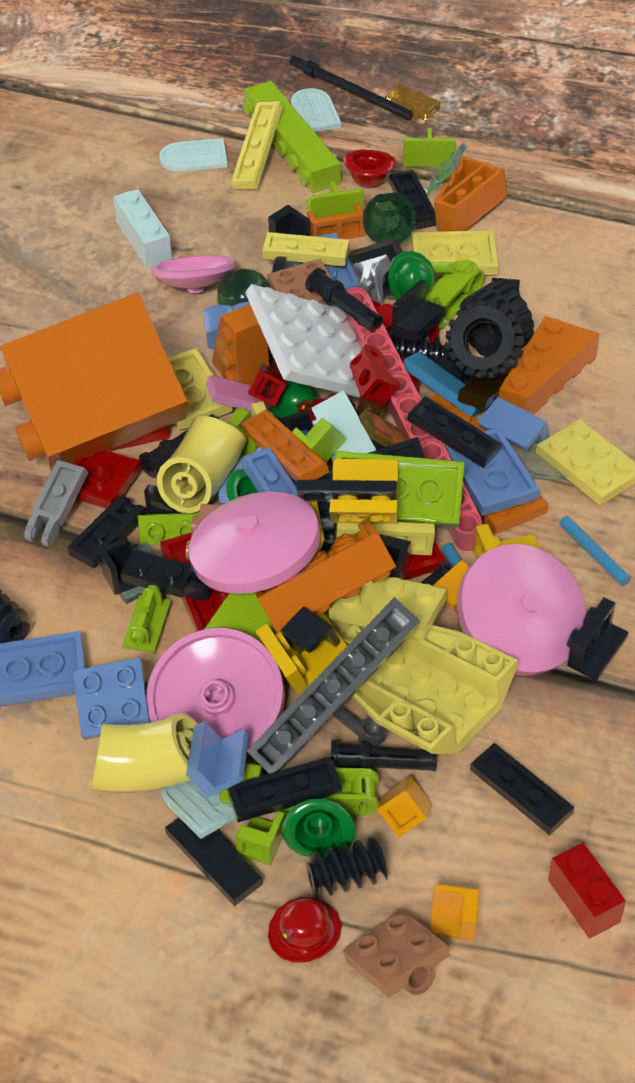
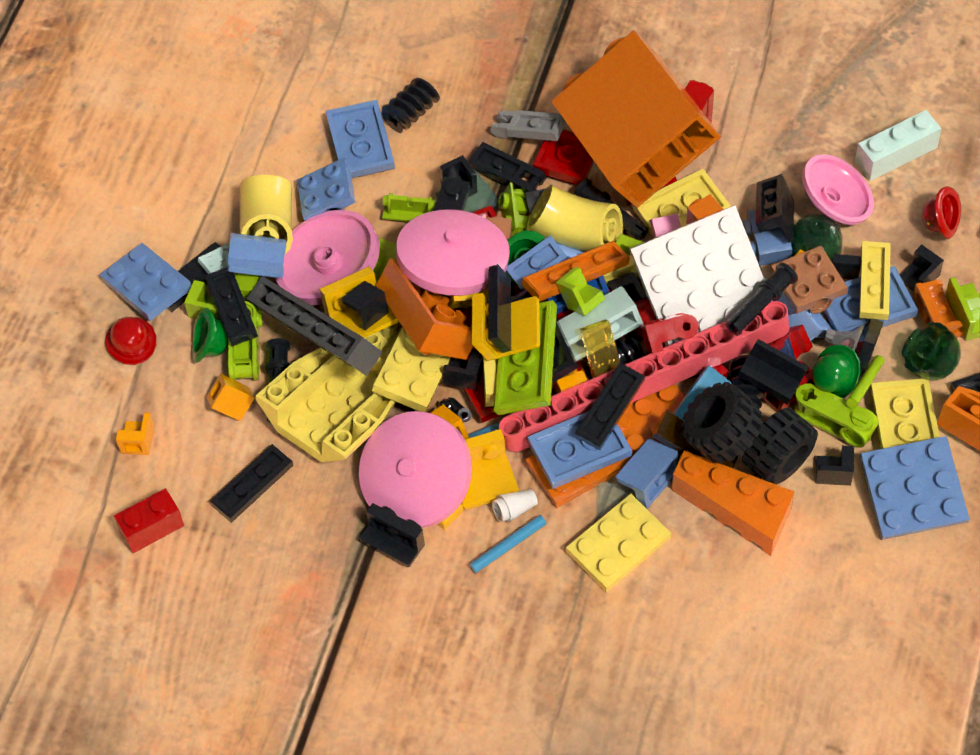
camera: 90 degrees right, 10 degrees up
(206, 305) = (775, 206): none -> black panel
(220, 906) = (146, 281): none -> medium blue plate
(229, 207) = (943, 212): none -> red hat
(346, 866) = (172, 356): black piece -> none
(398, 956) = (99, 394): nougat plate -> none
(529, 251) = (914, 488): none -> medium blue plate
(551, 539) = (513, 504): none -> white cone

